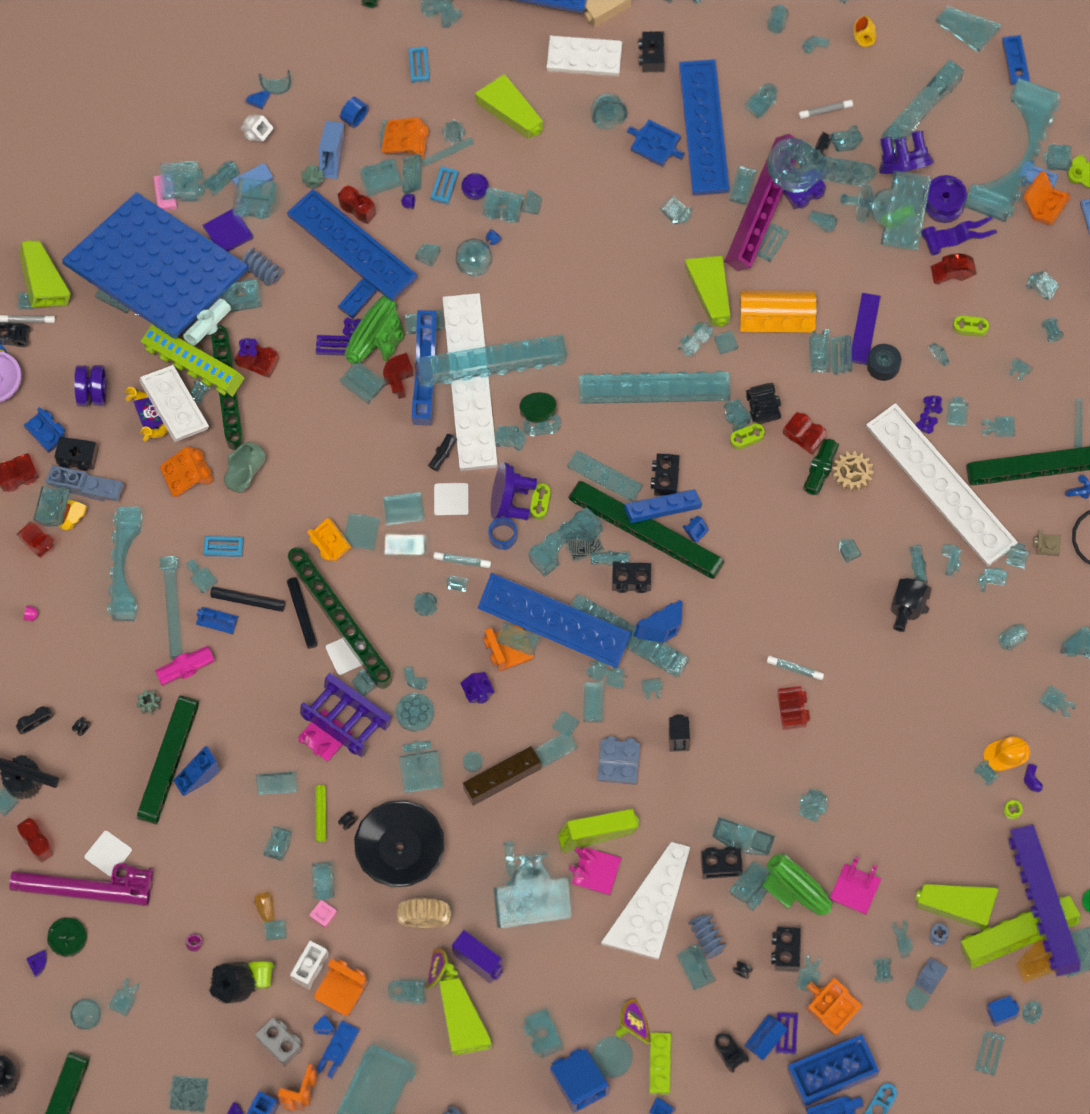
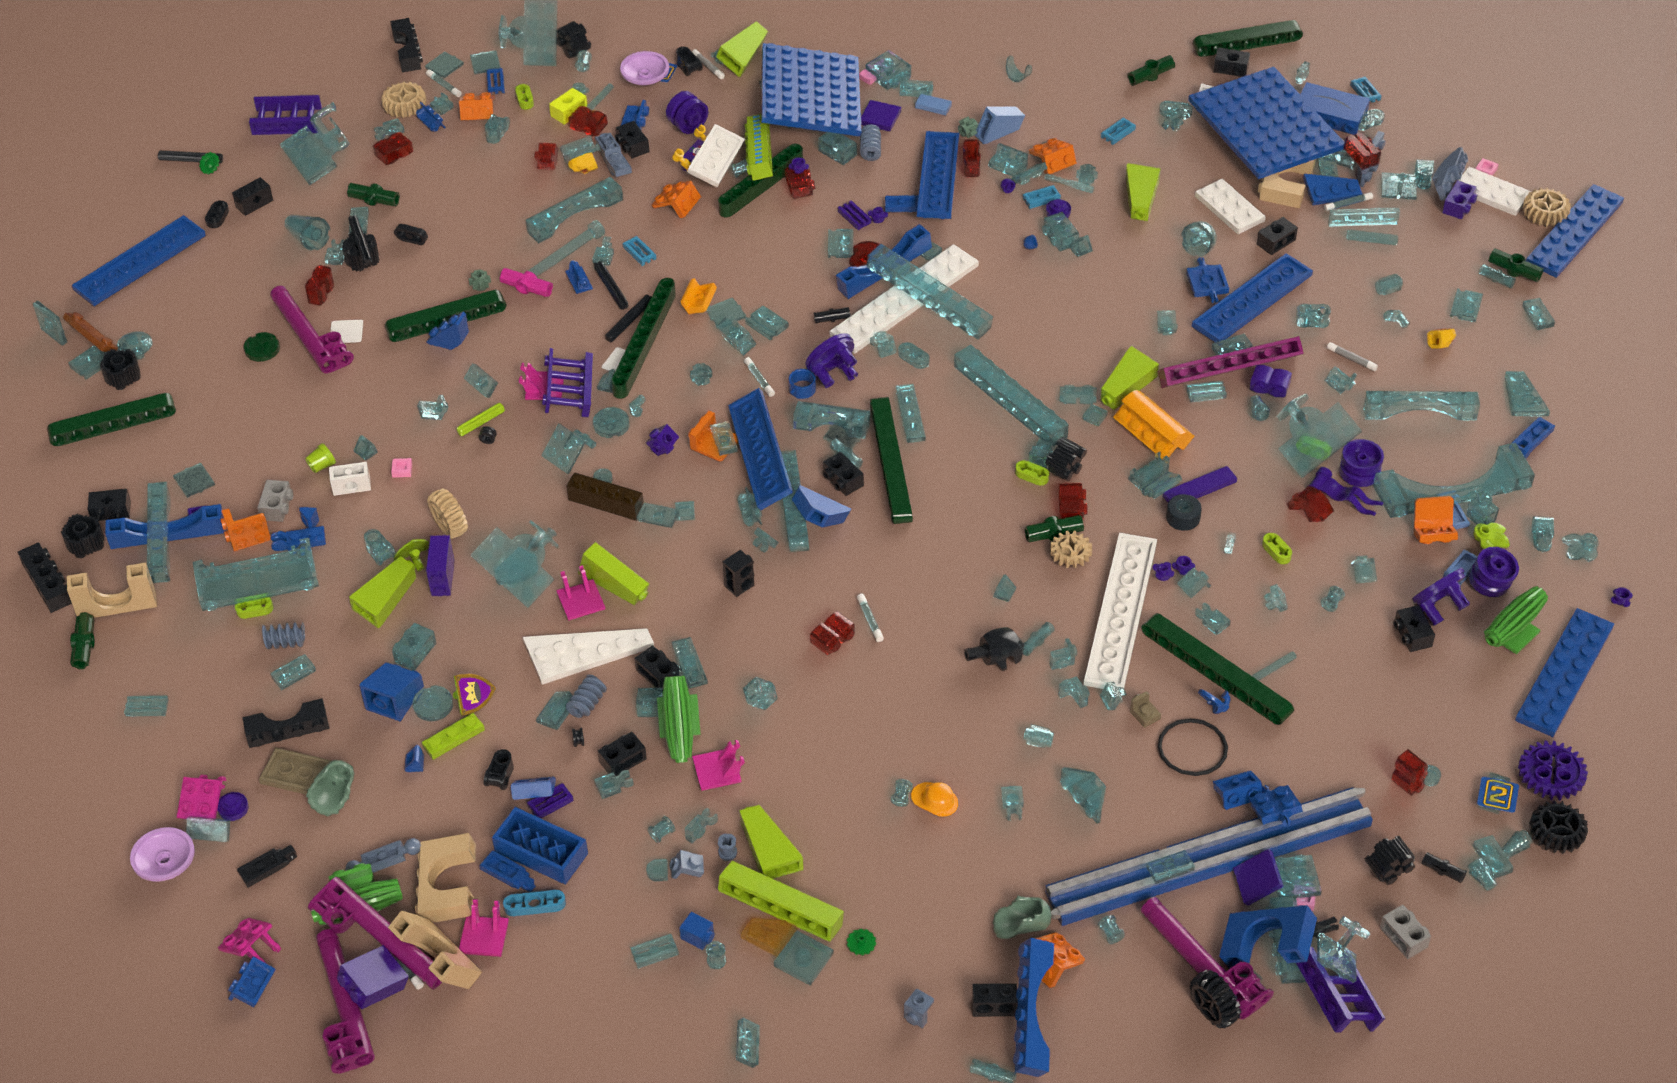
camera: 50 degrees right, 20 degrees down
(30, 613) = (489, 187): dark pink hinge -> none
(37, 962) = (228, 343): dark purple tile -> none
(81, 726) = (429, 255): black bush -> none
(85, 1014) = (206, 385): clear light blue hair -> none
(122, 1000) = (237, 400): clear light blue plate -> none
(189, 942) = (314, 410): magenta hinge -> none
(207, 322) = (794, 134): light aqua piece -> none
(232, 982) = (297, 442): black brick -> none
(243, 466) = (711, 221): sand green piece -> none
(254, 198) = (915, 104): clear light blue brick -> none
(256, 128) = (975, 75): white brick -> none
(258, 99) = (996, 73): blue tile -> none
(264, 905) = (378, 430): clear yellow cone -> none
(323, 880) = (426, 449): clear light blue brick -> none
(341, 987) = (350, 510): orange bracket -> none
(354, 112) = (1037, 109): blue piece -> none
(377, 329) = (884, 224): bright green plate -> none
(396, 825) = (492, 467): black dish -> none
(428, 254) = (978, 218): clear light blue slope -> none
(451, 499) = (801, 344): white sticker -> none
(457, 583) = (737, 383): clear light blue slope -> none
(473, 257) = (1003, 241): clear light blue cylinder -> none
(538, 407) = (923, 340): dark green tile -> none
(544, 502) = (851, 390): lime beam -> none
(593, 702) = (718, 514): clear light blue plate -> none
(618, 761) = (685, 558): sand blue plate -> none
(662, 506) = (918, 454): blue plate -> none
(665, 475) = (947, 444): black brick -> none
(696, 529) = (922, 487): blue tile -> none
(814, 168) = (1285, 367): clear light blue beam -> none
(823, 142) = (1314, 369): black plate -> none
(832, 1005) = (598, 812): orange plate -> none
(903, 159) = (1362, 416): dark purple piece -> none
(1015, 815) = (893, 830): lime bush -> none
(1030, 779) = (926, 826): dark purple arm -> none
(1045, 901) = (818, 892): dark purple brick -> none

